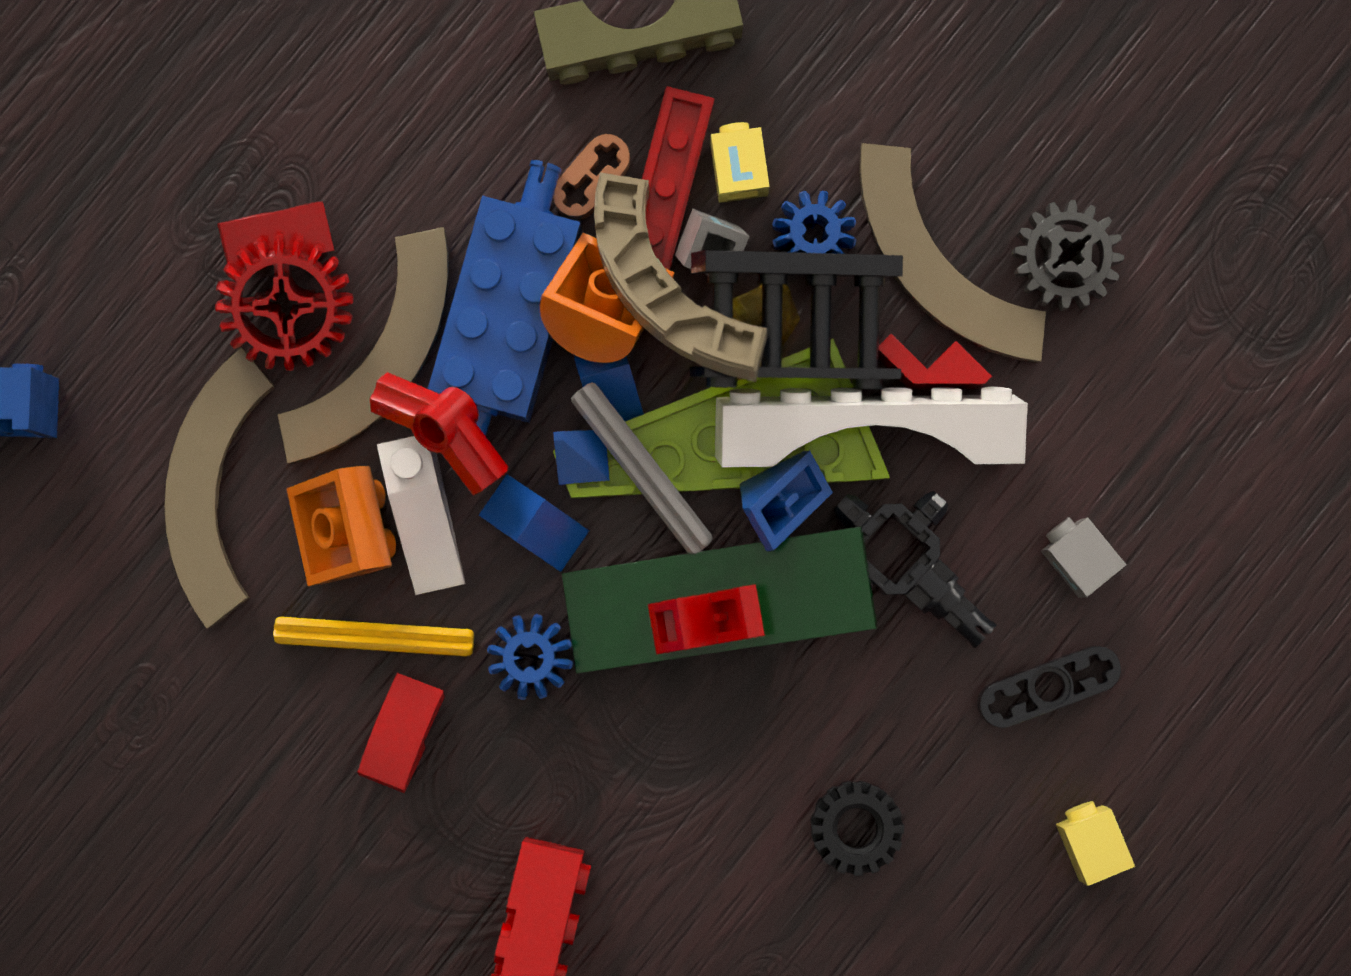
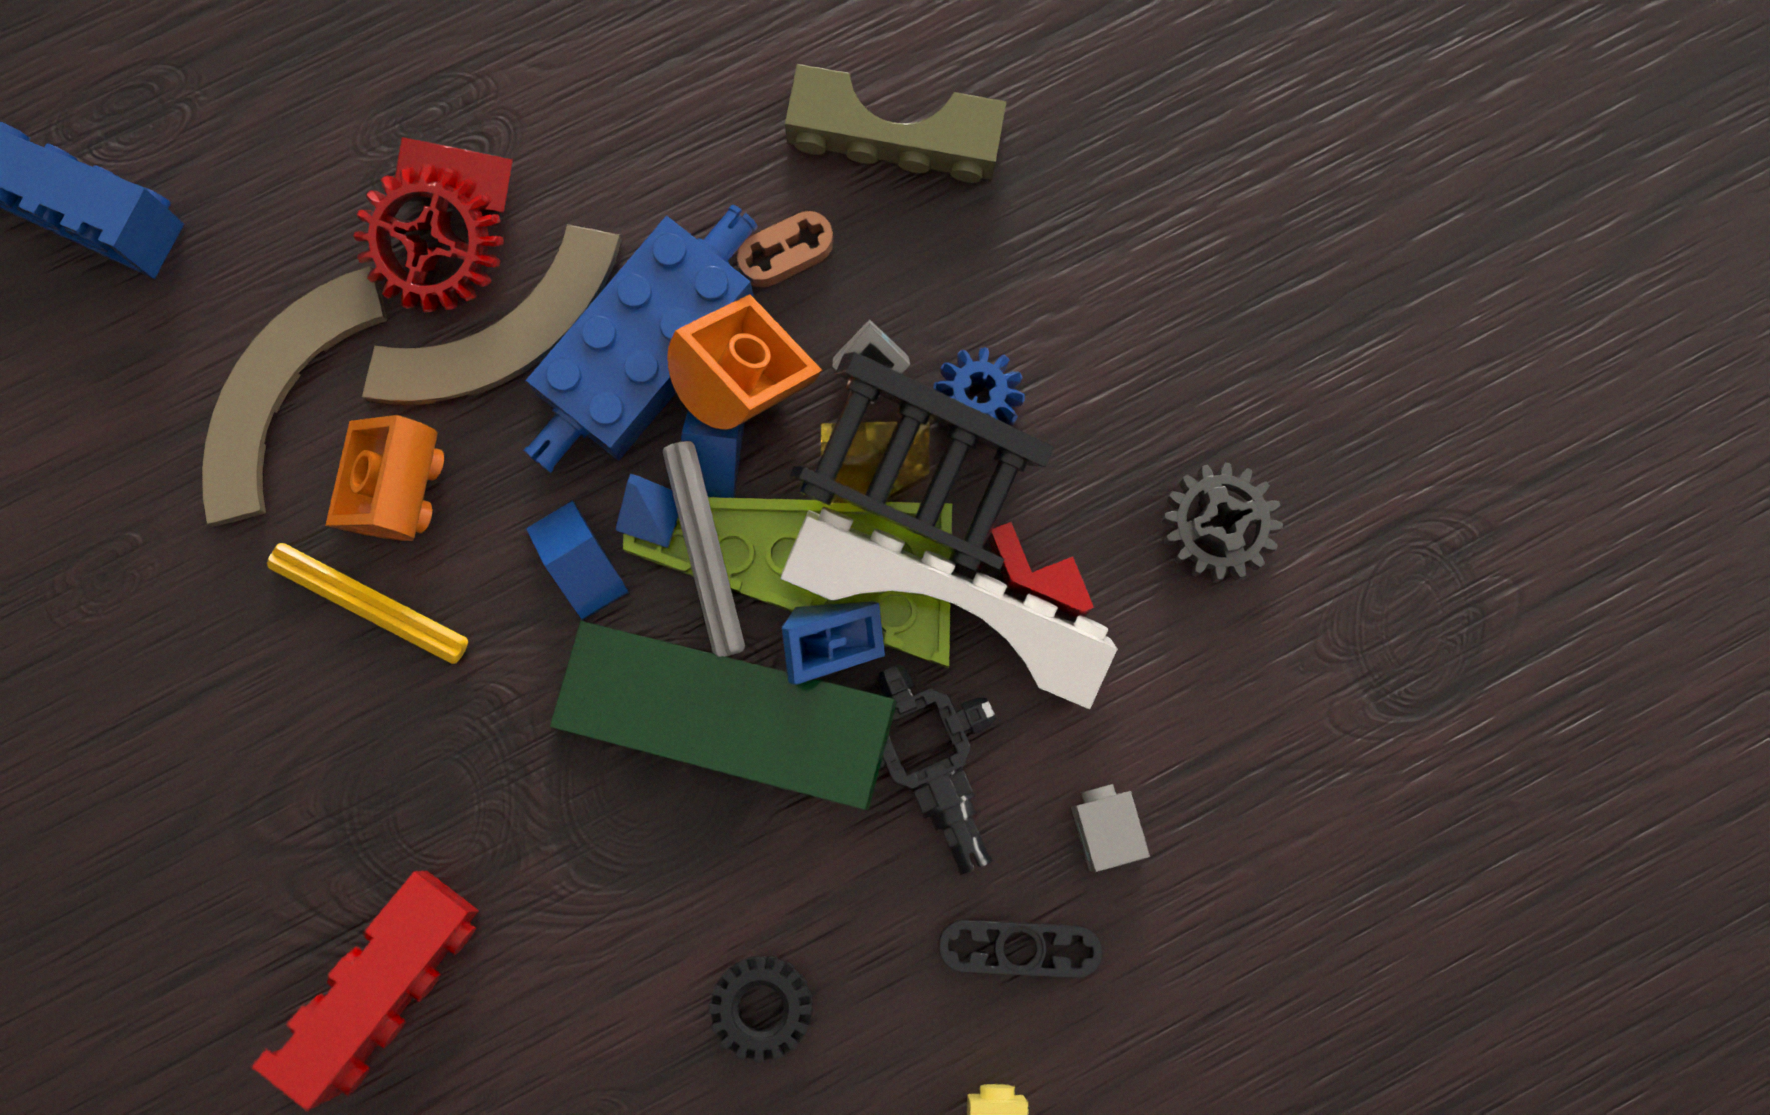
camera: 15 degrees right, 5 degrees down
(400, 733) = (346, 708): red slope -> none
(421, 514) = (470, 499): white slope -> none
(441, 425) = (524, 419): red piece -> none
(530, 674) = (490, 682): blue gear -> none
(655, 296) = (789, 383): dark tan tile -> none
(673, 166) = (861, 280): red tile -> none
(706, 619) = (698, 726): red slope -> none
(739, 163) = (934, 295): light yellow brick -> none
(928, 274) = (1075, 484): dark tan tile -> none

